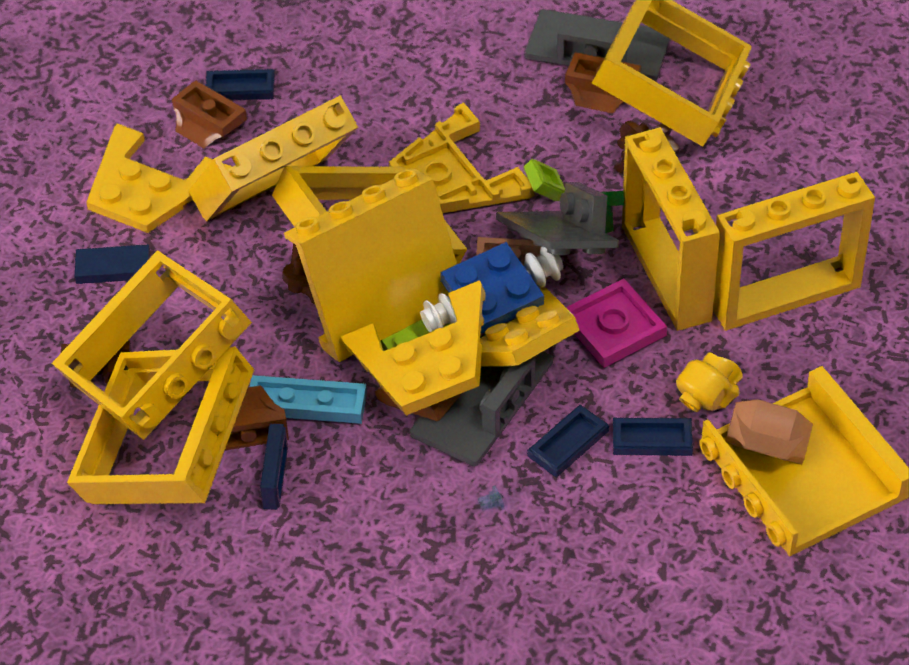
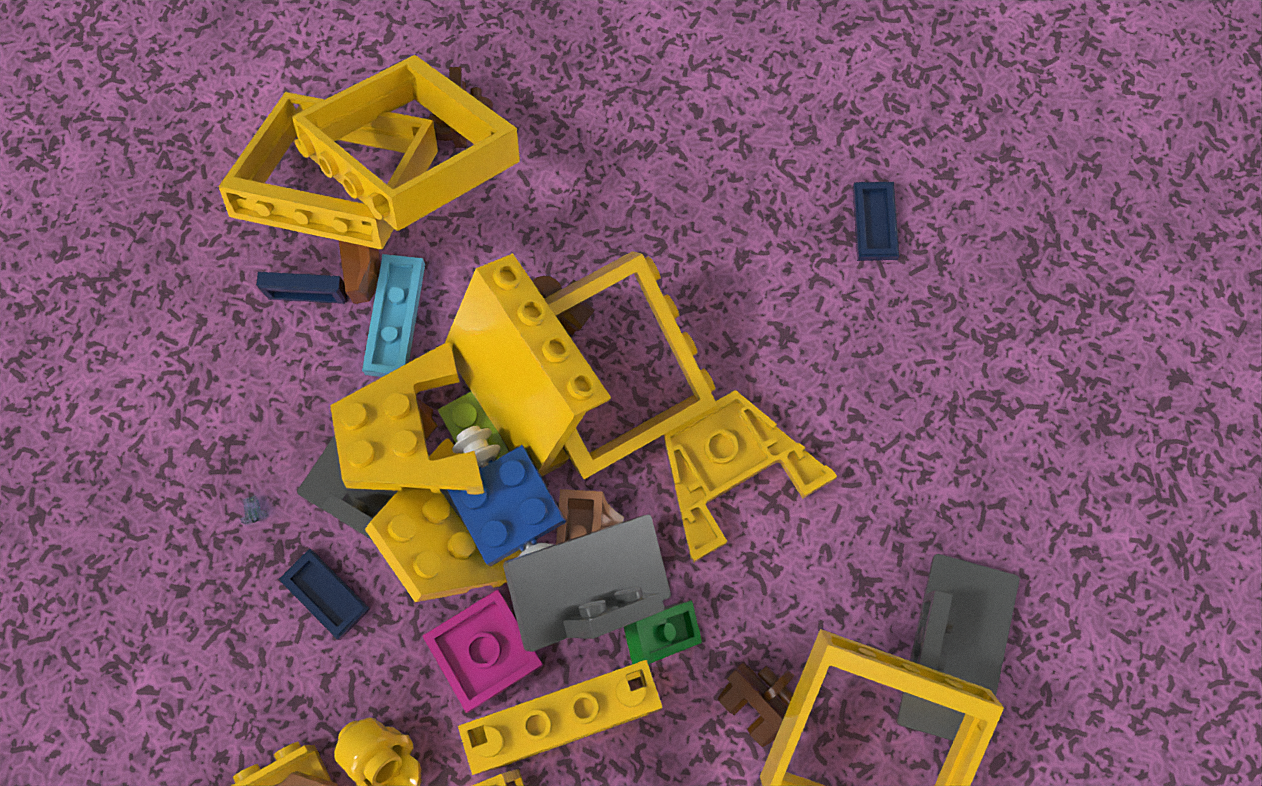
camera: 90 degrees right, 25 degrees up
(109, 263) = (597, 111): dark blue tile -> none
(134, 191) = (704, 123): yellow wing -> none
(205, 114) = (818, 185): dark orange slope -> none
(260, 161) = (635, 206): yellow window -> none
(544, 180) = (708, 574): lime tile -> none
(580, 78) = (890, 631): dark orange slope -> none
(652, 436) = (322, 688): dark blue tile -> none

